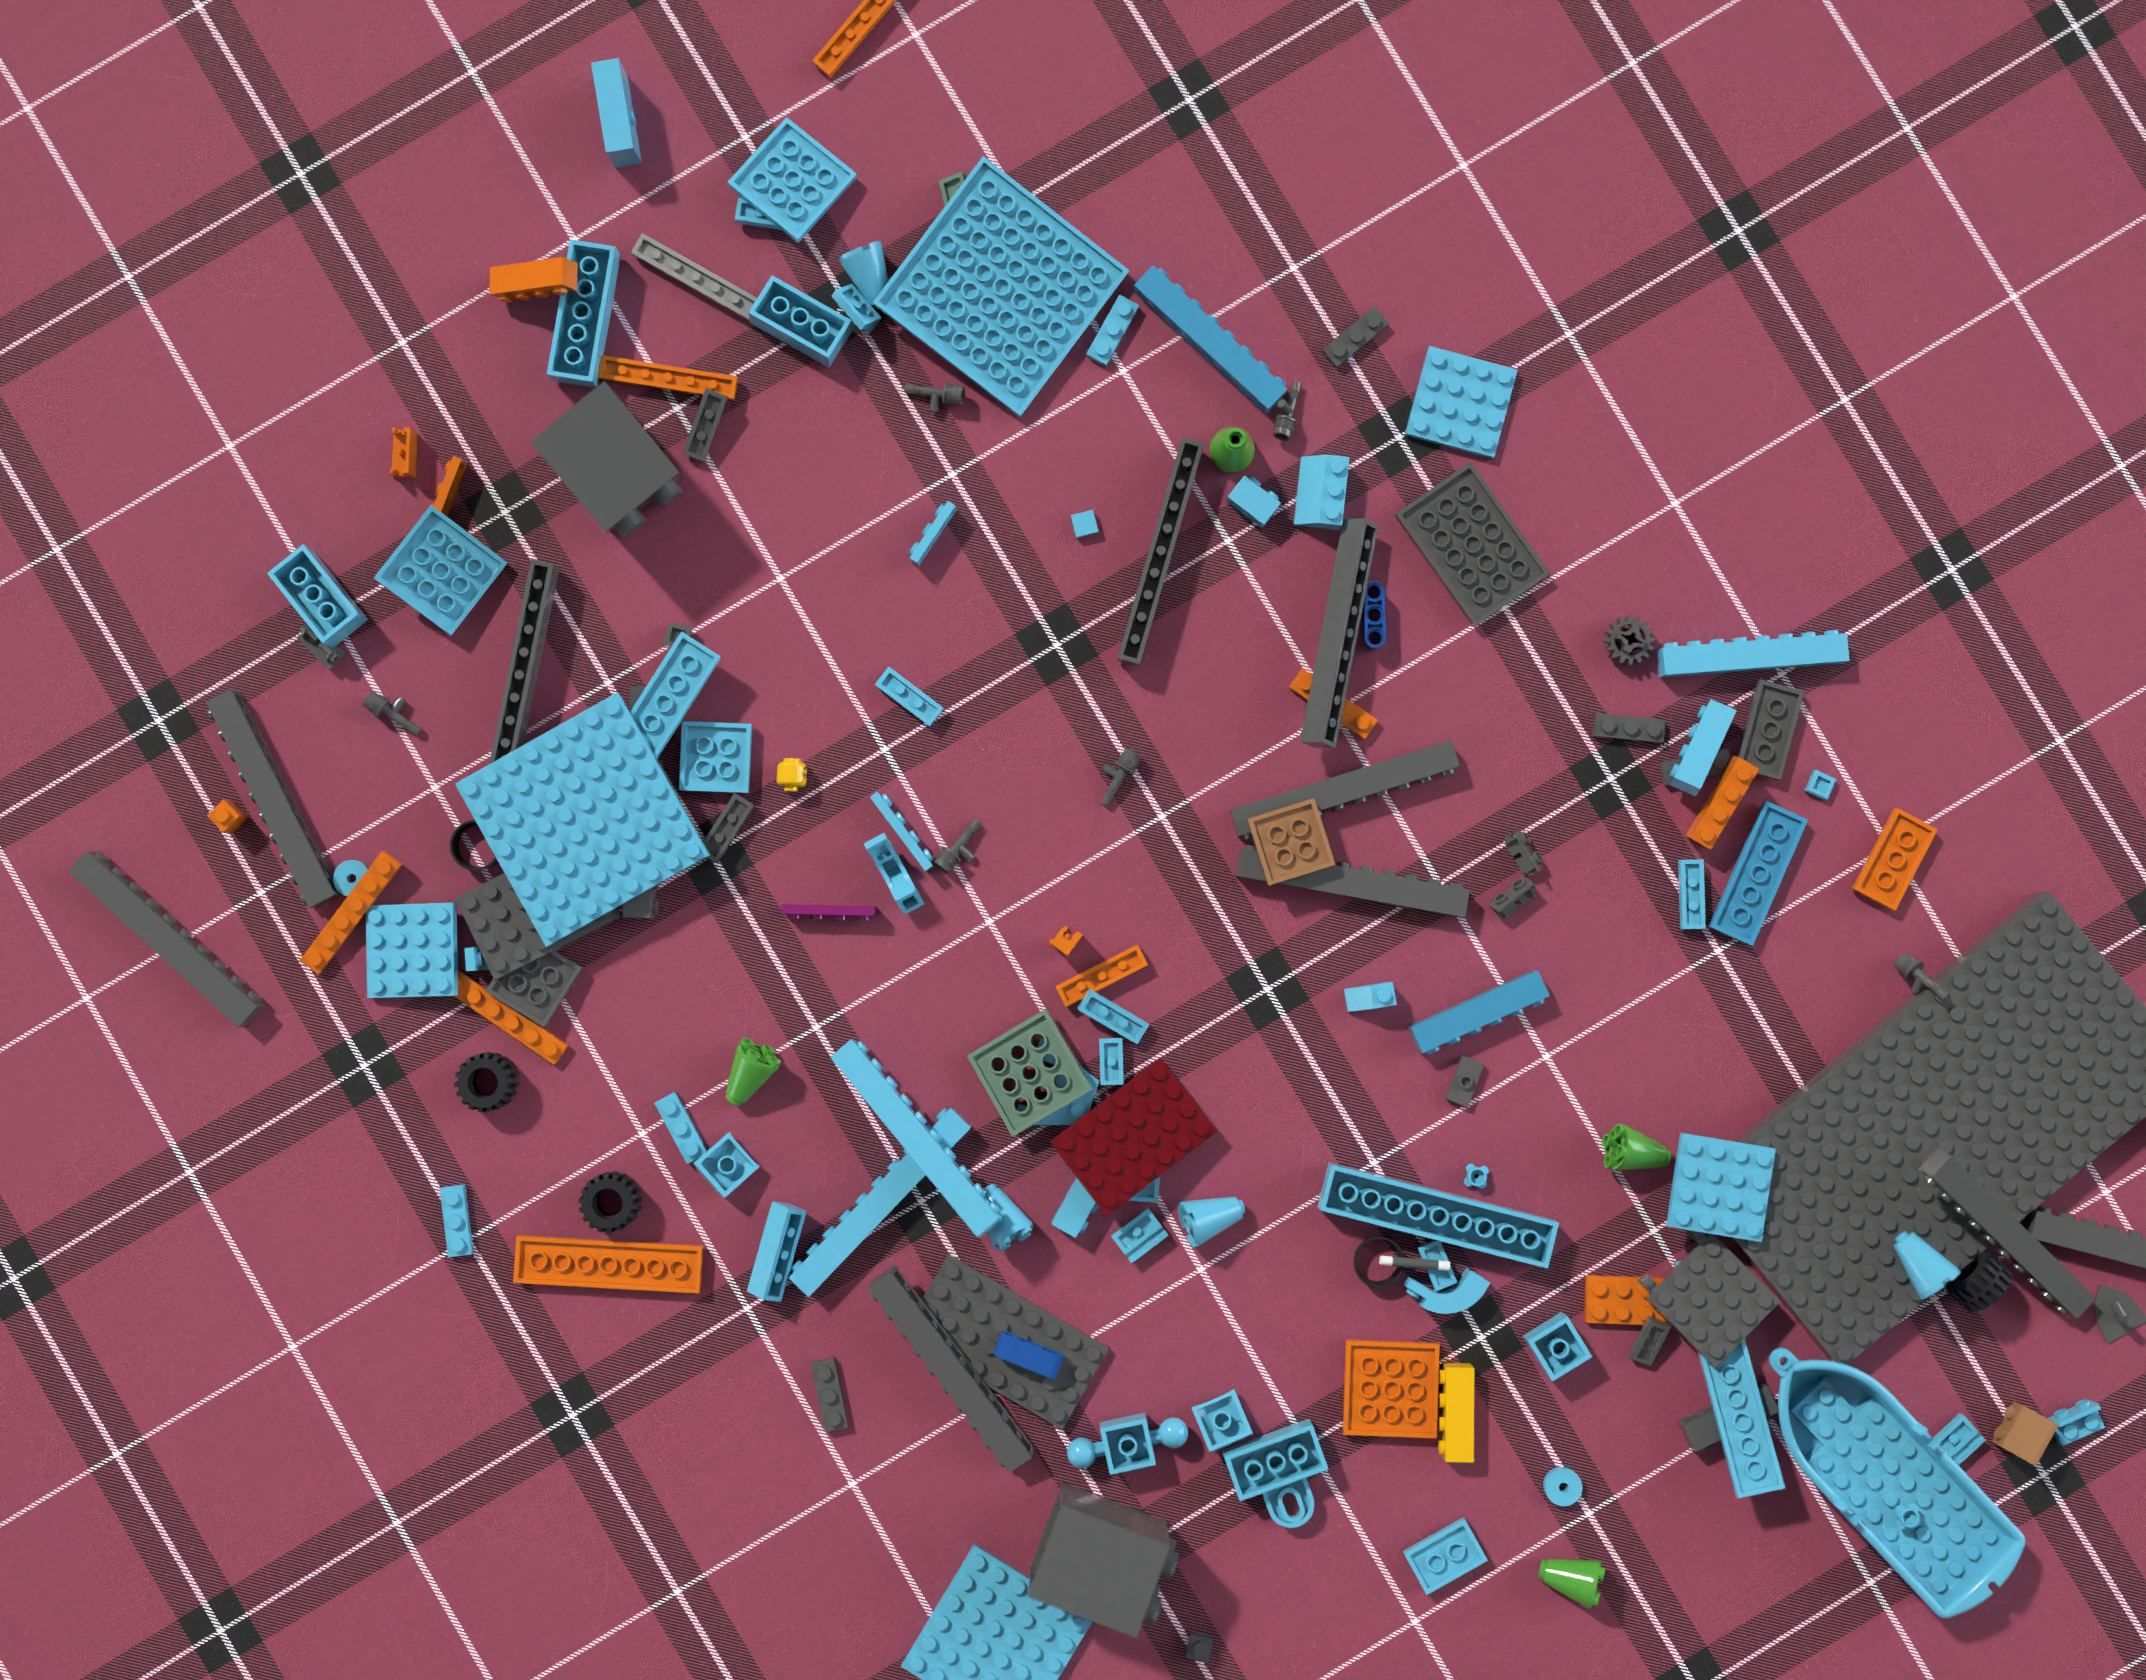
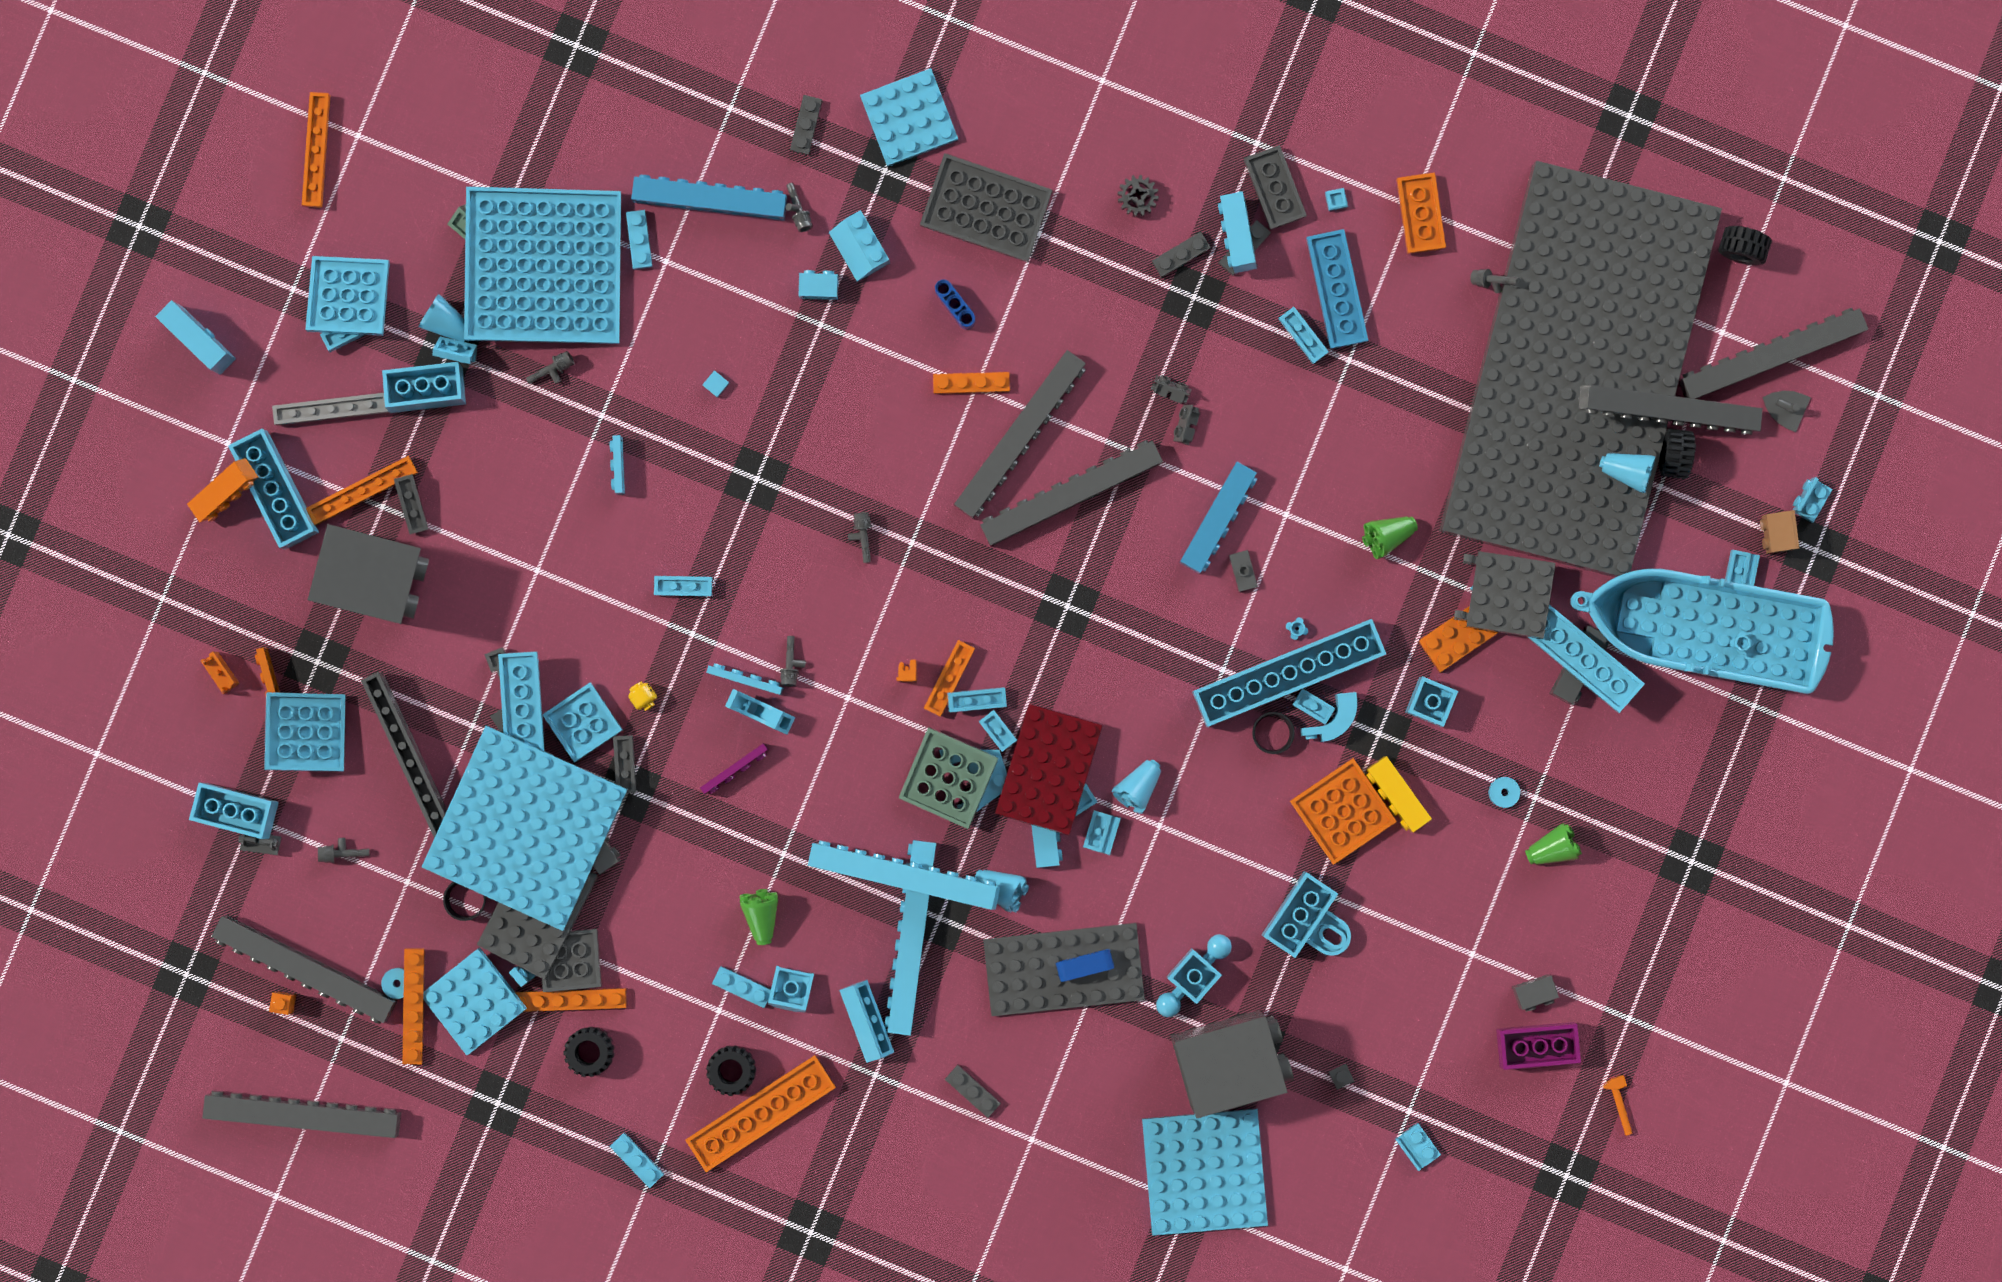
camera: 35 degrees left, 0 degrees up
(951, 1368) = (1040, 1012): dark grey brick -> none
(1160, 552) = (781, 366): dark grey brick -> none
(1222, 1421) = (1246, 915): medium azure slope -> none
(1231, 456) = (781, 267): bright green cone -> none
(1291, 841) = (1009, 496): medium nougat plate -> none
(1339, 633) = (940, 333): dark grey brick -> none
(1370, 996) = (1138, 560): medium azure slope -> none
(1414, 1263) = (1296, 716): dark grey bar -> none
(1445, 1555) = (1459, 895): medium azure plate -> none
(1649, 1341) = (1491, 653): dark grey plate -> none
(1720, 1187) = (1460, 516): medium azure plate -> none
(1722, 802) = (1277, 259): orange brick -> none
(1753, 655) = (1228, 145): medium azure brick -> none

